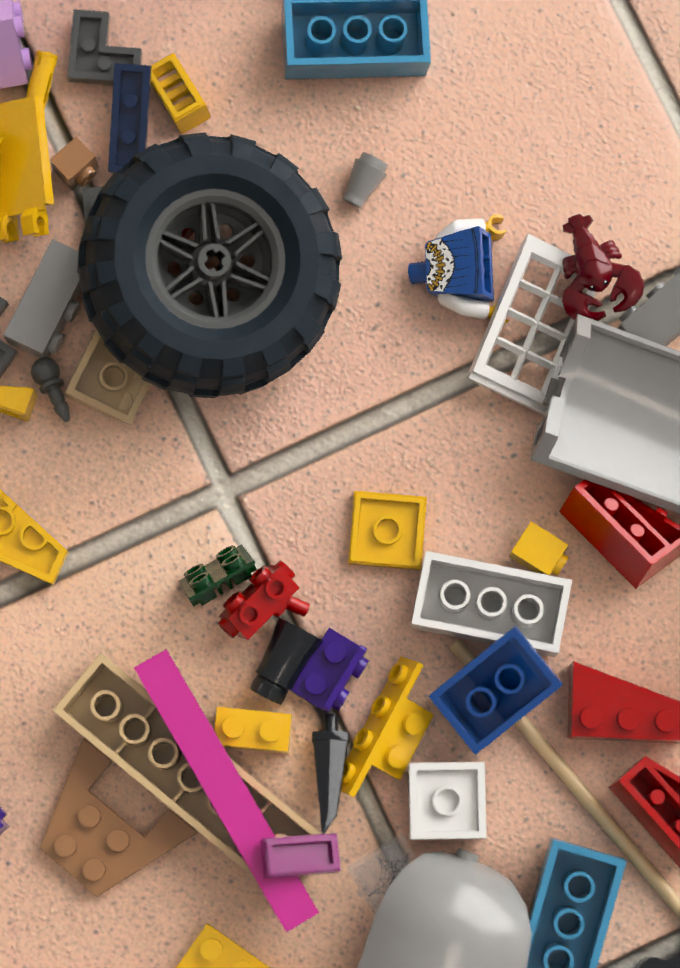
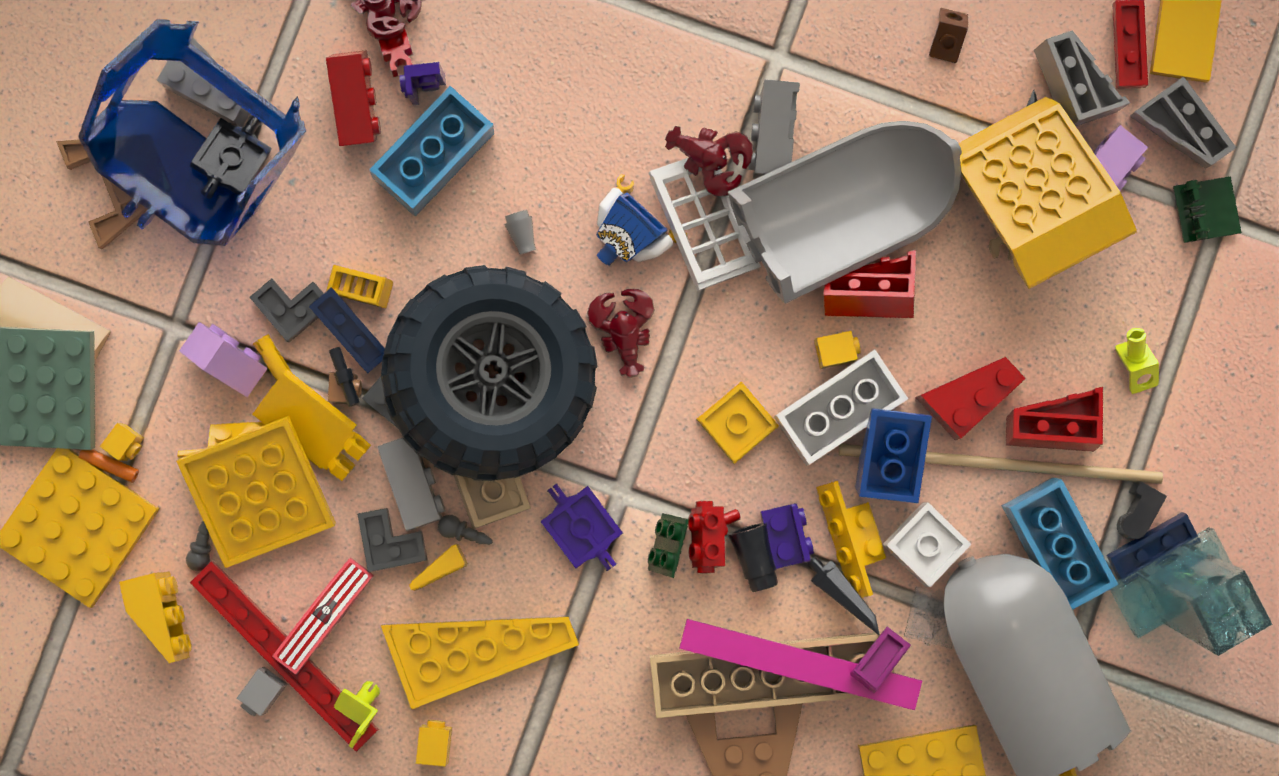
camera: 45 degrees left, 5 degrees up
(84, 151) = (344, 376): none -> black bar
(158, 485) = (581, 527): none -> dark purple plate
(253, 730) = (778, 612): yellow brick -> none
(370, 348) = (623, 327): none -> dark red animal

